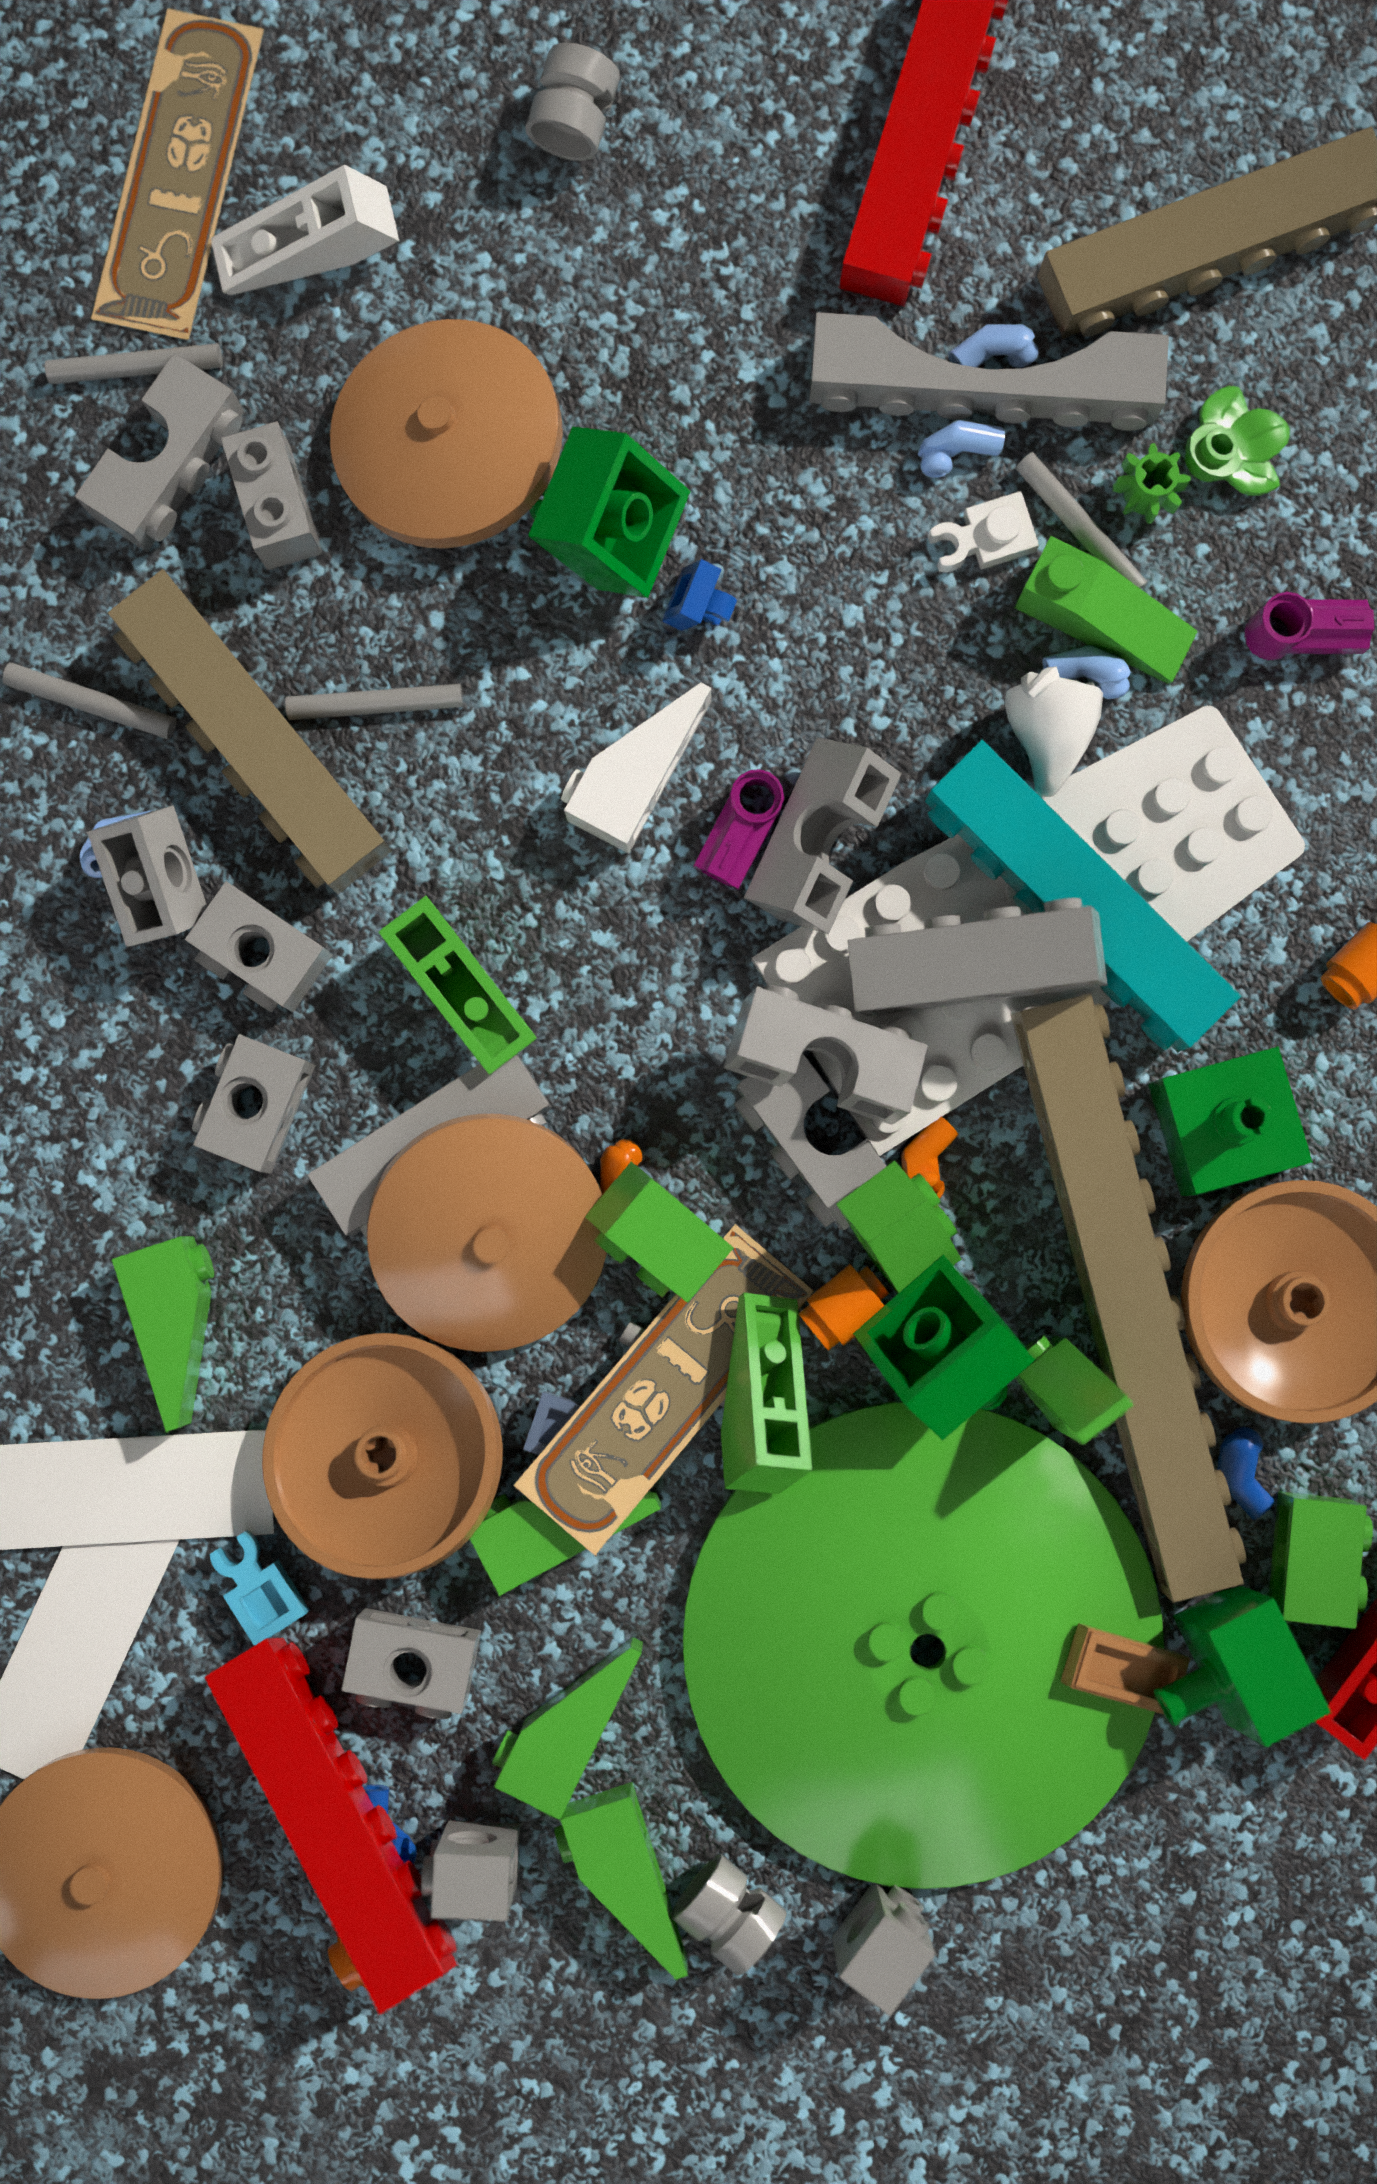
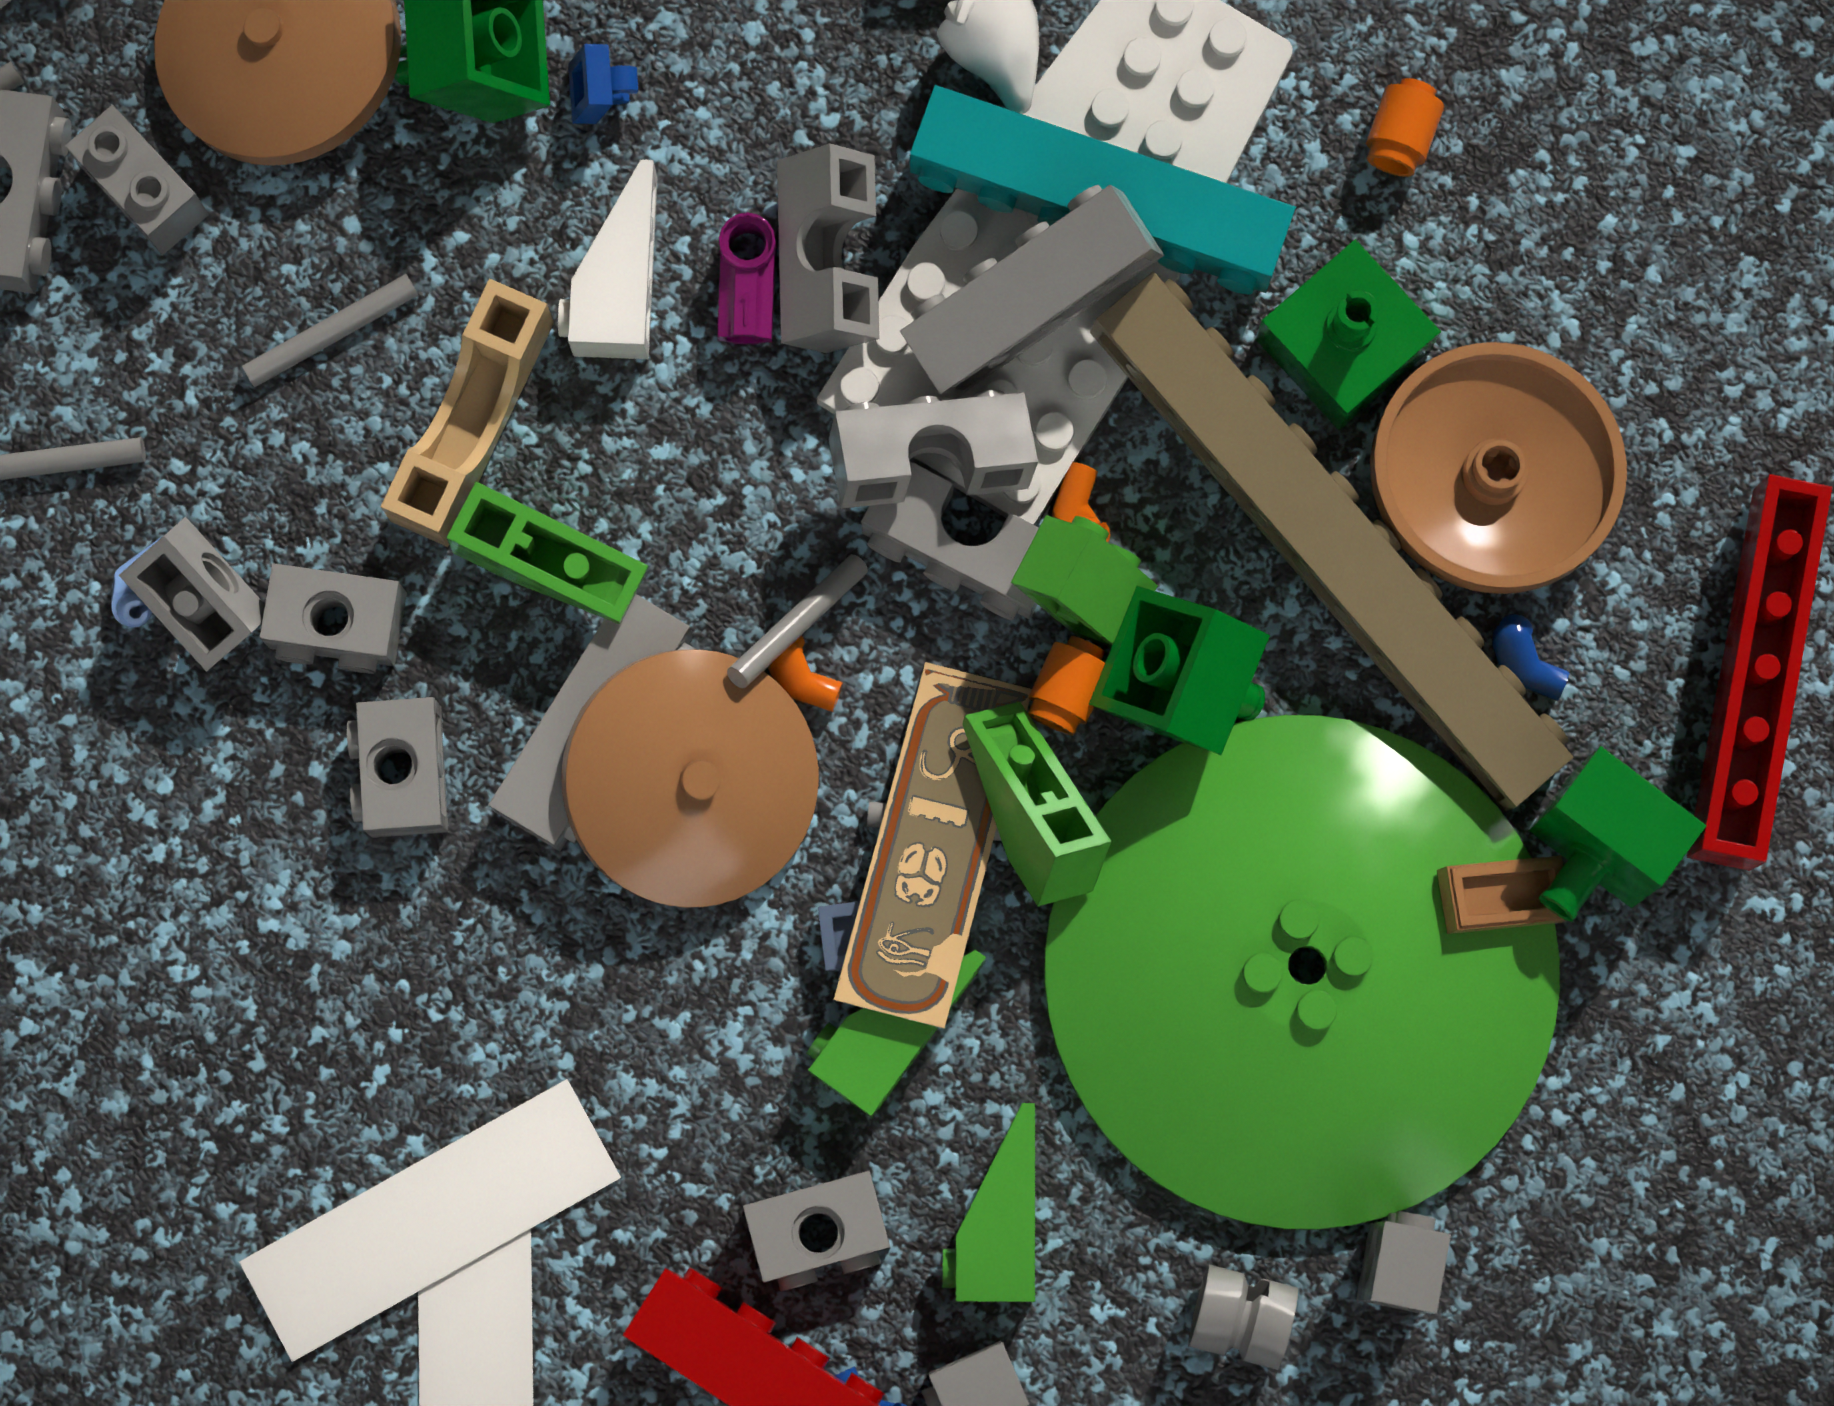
camera: 30 degrees left, 5 degrees down
(169, 1312) = (415, 1005): bright green slope -> none
(249, 732) = (219, 413): dark tan brick -> none
(263, 1597) = (640, 1240): medium azure plate -> none
(382, 1456) = (692, 1040): medium nougat dish -> none
(487, 805) = (487, 381): none -> tan arch
(619, 1866) = (1110, 1319): bright green slope -> none
(641, 1143) = (797, 621): none -> light grey bar
(657, 1232) = (854, 697): bright green brick -> none
(1071, 1389) = (1314, 651): bright green slope -> none
(1319, 1559) = (1637, 702): bright green brick -> none

